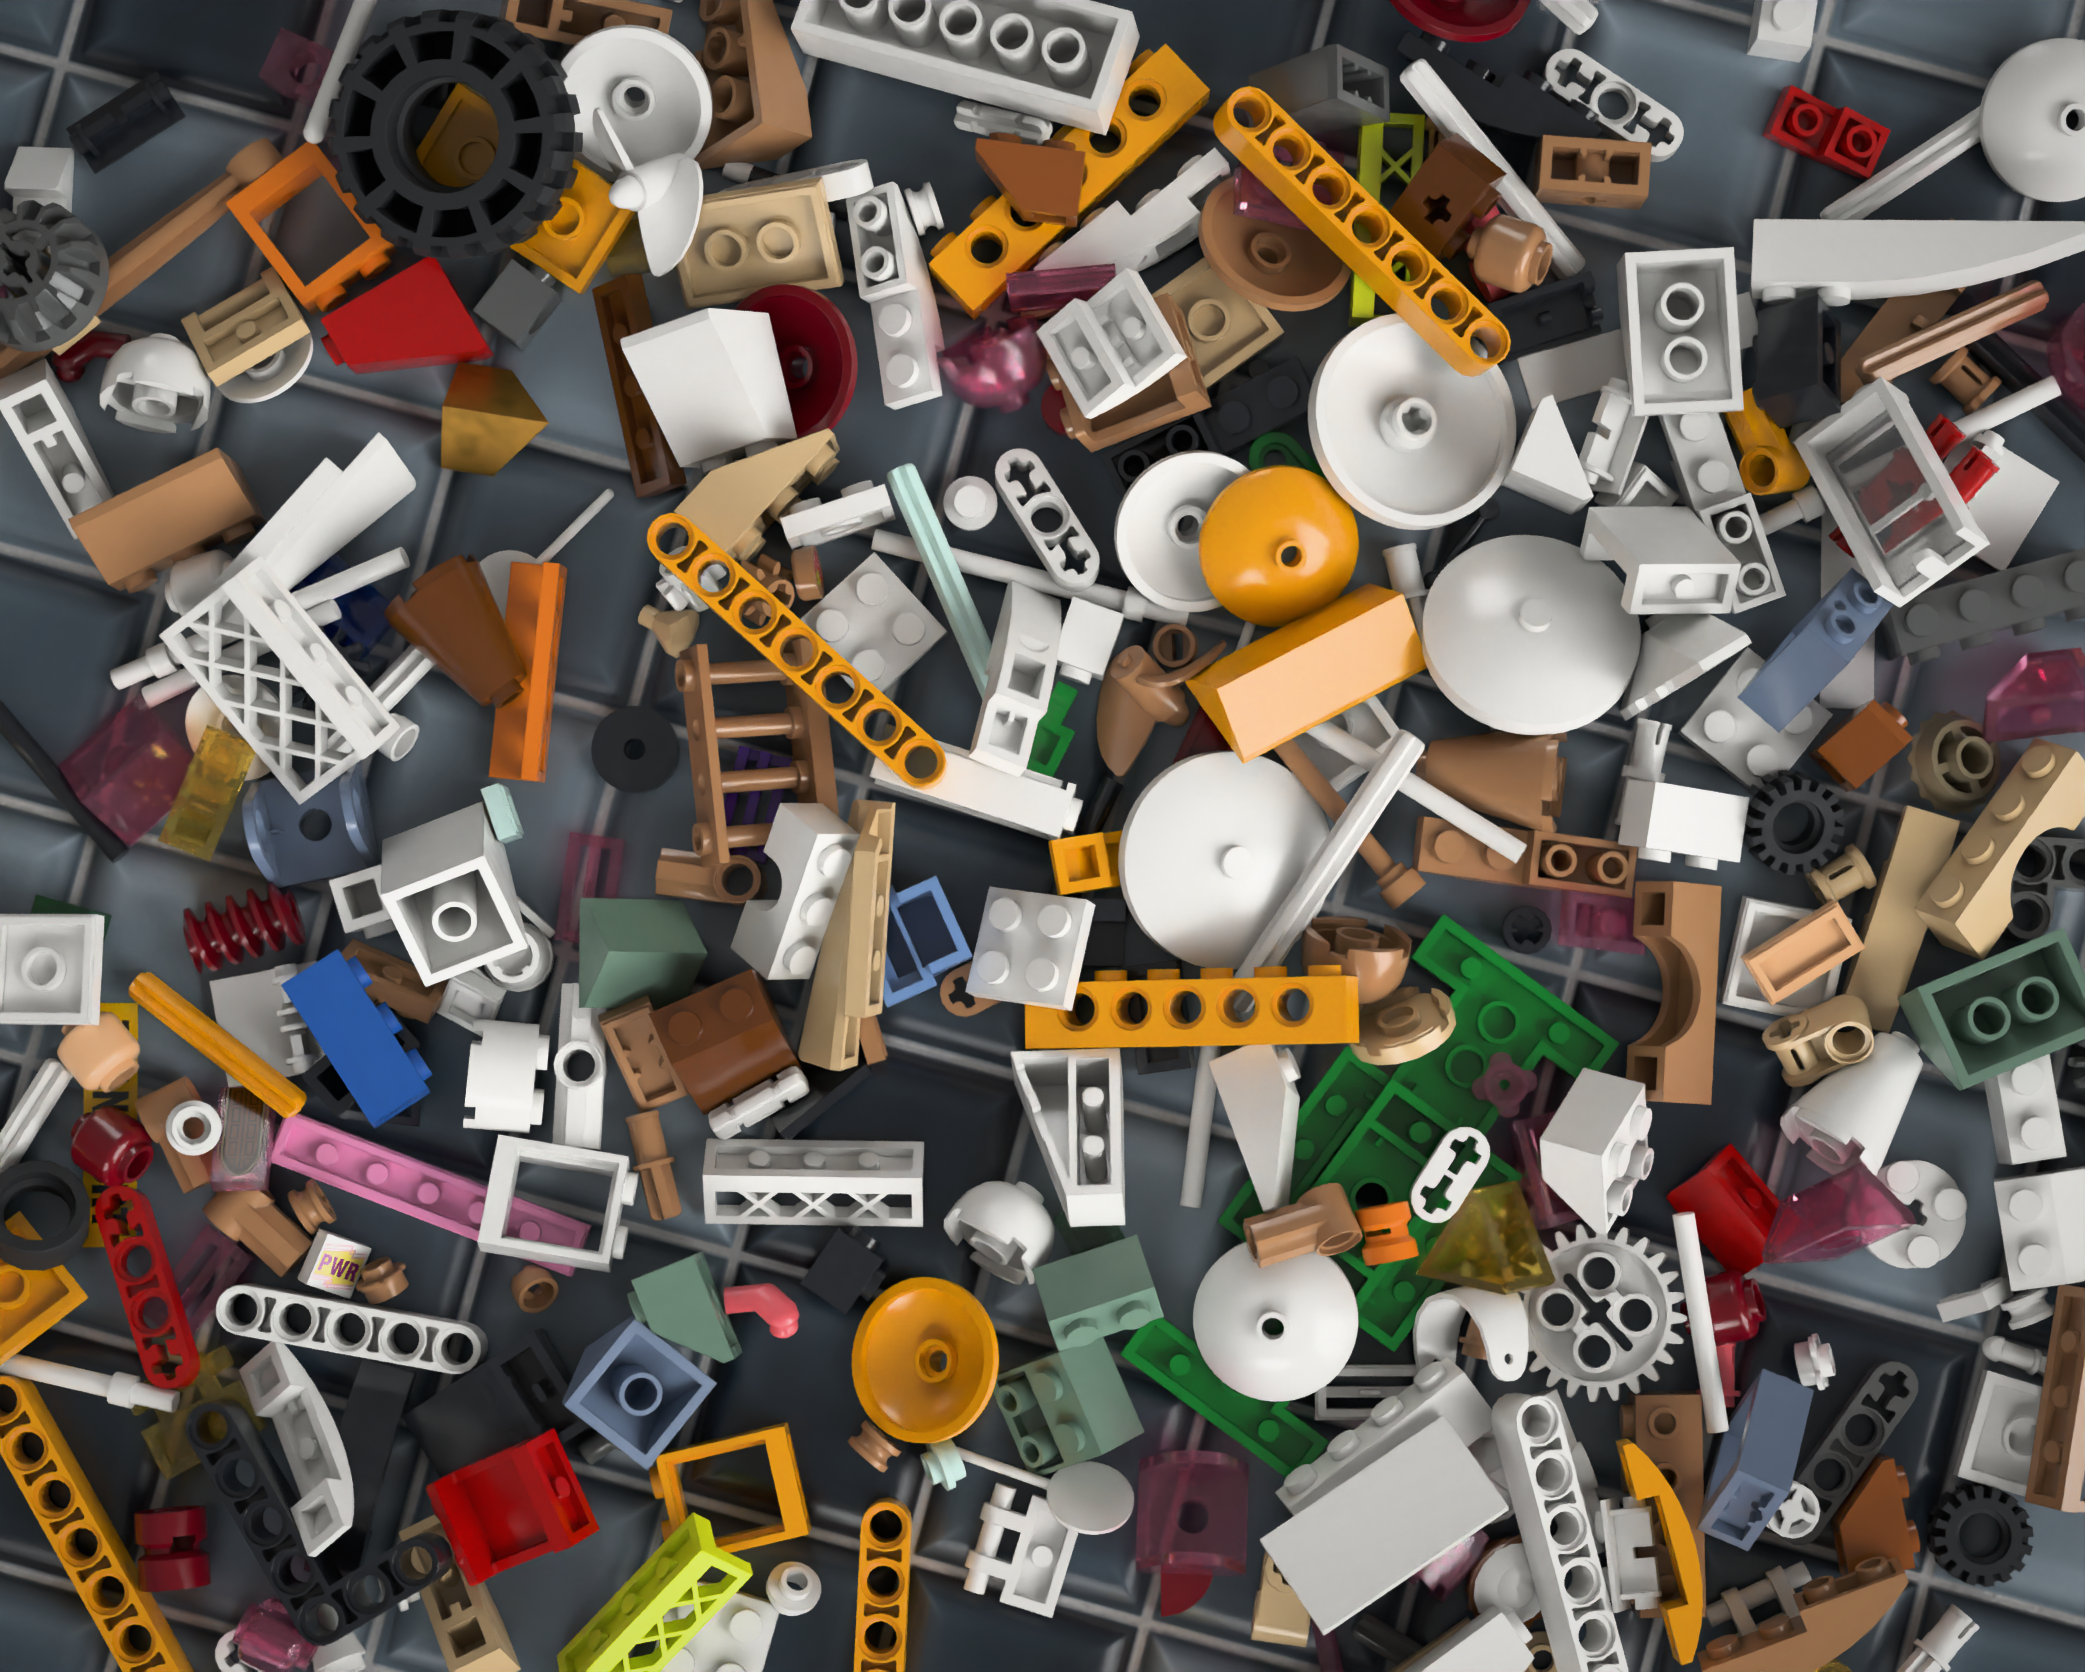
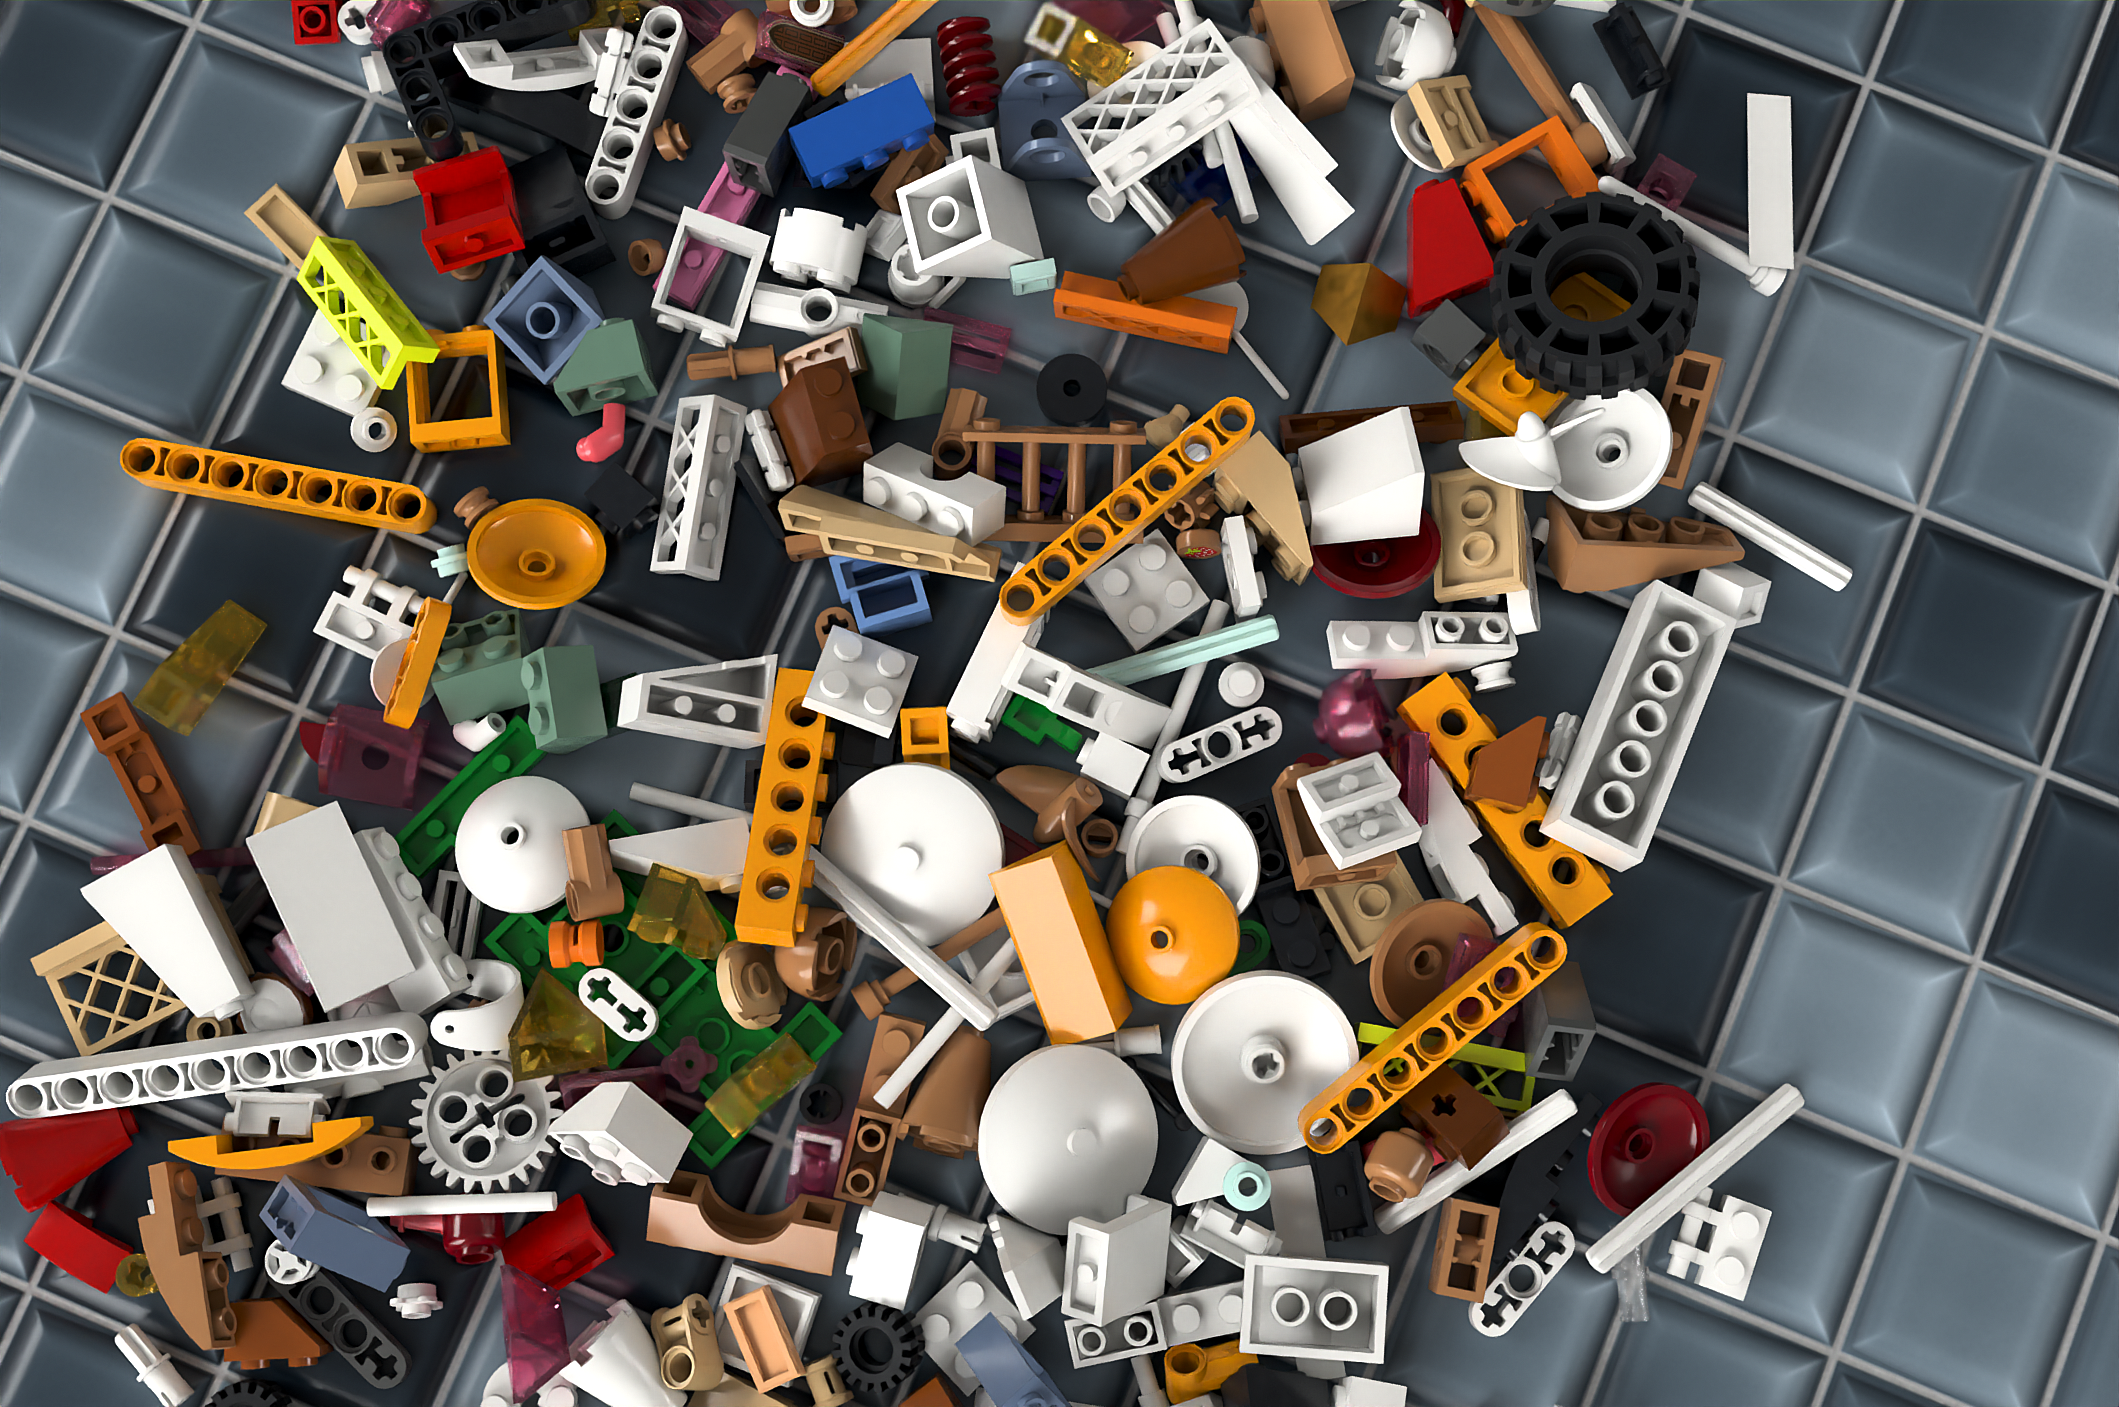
camera: 90 degrees right, 5 degrees down
(213, 156) = (1592, 110): none -> white slope
(309, 1364) = (611, 71): none -> white axle
(334, 1263) = (691, 104): tile -> none
(363, 1155) = (760, 141): none -> dark grey slope
(1004, 1227) = (636, 634): white cylinder -> none
(1076, 1480) = (417, 662): none -> light orange beam
(1151, 1395) = (478, 735): none -> white arm
(1333, 1122) = (677, 912): none -> clear yellow slope
(1518, 996) = (760, 1085): none -> clear yellow slope
(1550, 431) = (1231, 1182): none -> light aqua plate

